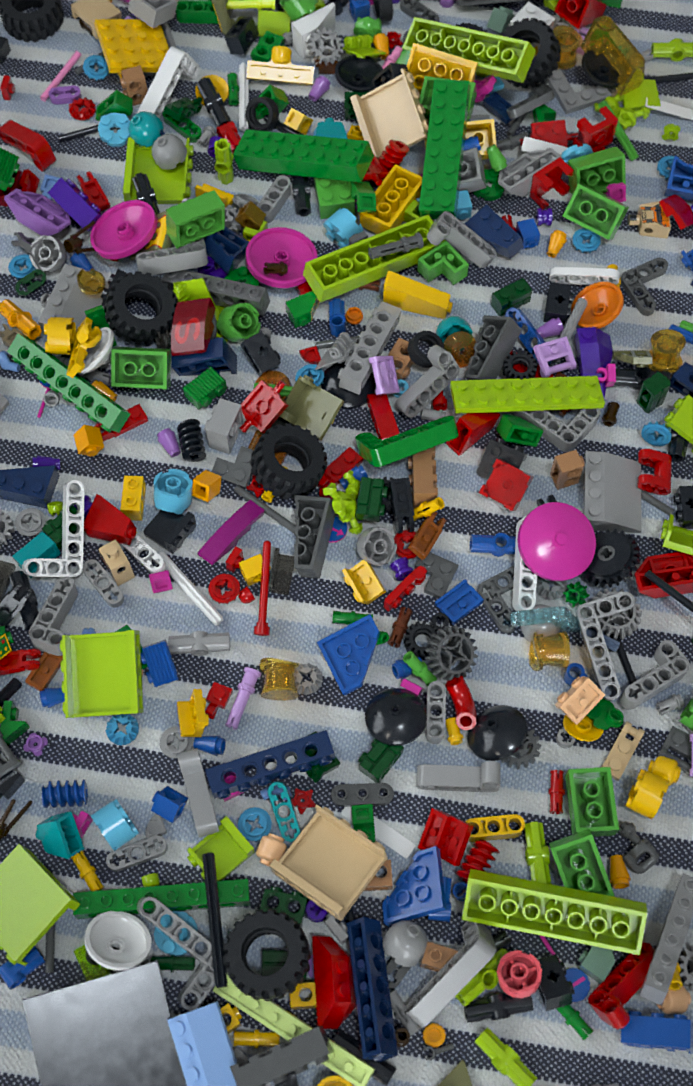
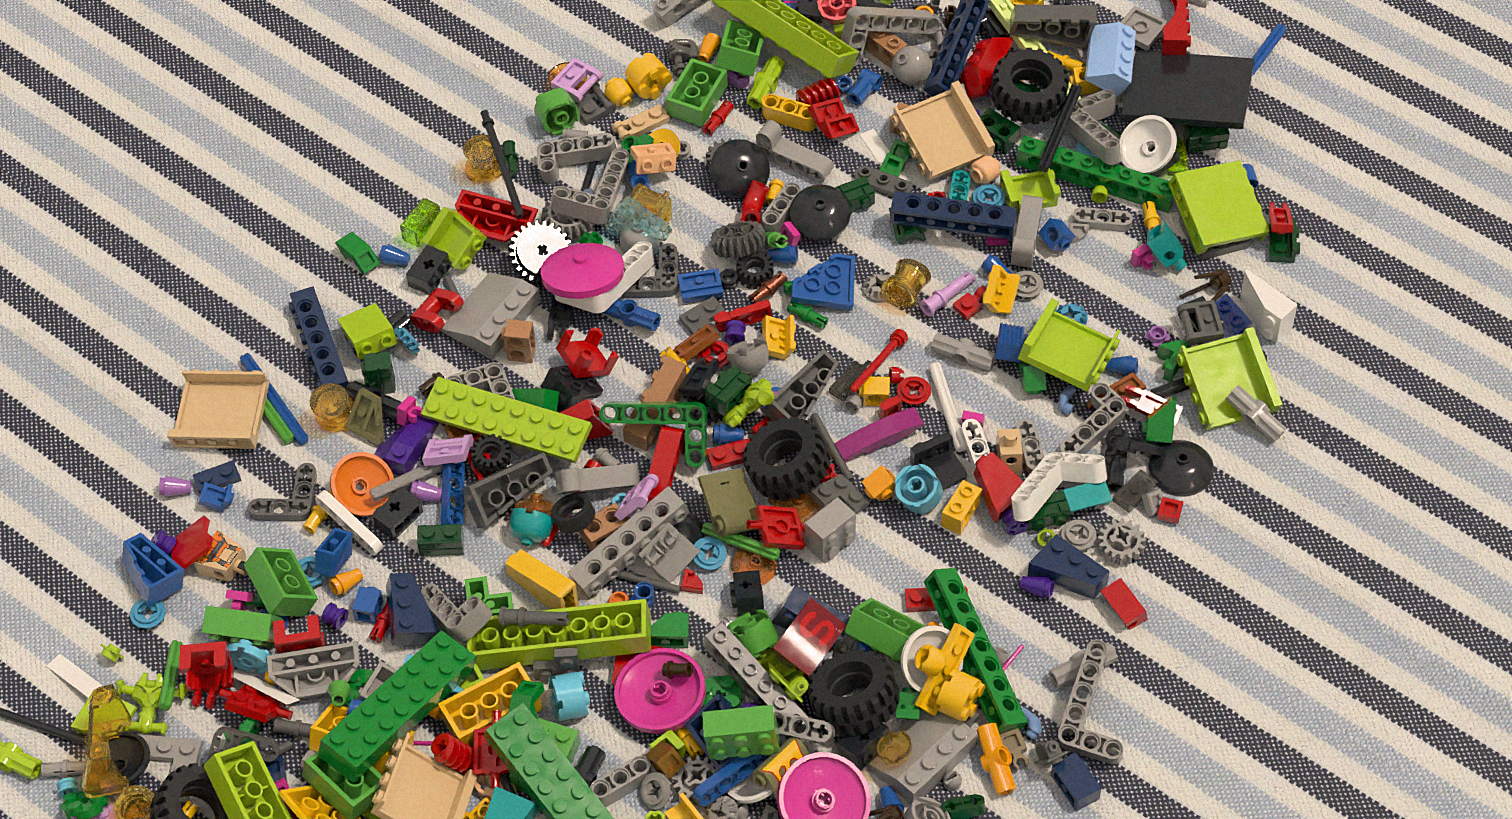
camera: 150 degrees left, 10 degrees down
(64, 794) = (1146, 281): blue piece -> none
(88, 440) = (981, 584): light orange brick -> none
(115, 824) = (1113, 234): medium azure brick -> none
(169, 442) = (895, 552): medium lavender cone -> none
(191, 440) = (871, 538): black piece -> none
(205, 388) = (829, 588): green brick -> none
(417, 890) = (879, 92): blue plate -> none
(577, 247) = (333, 552): none -> blue brick

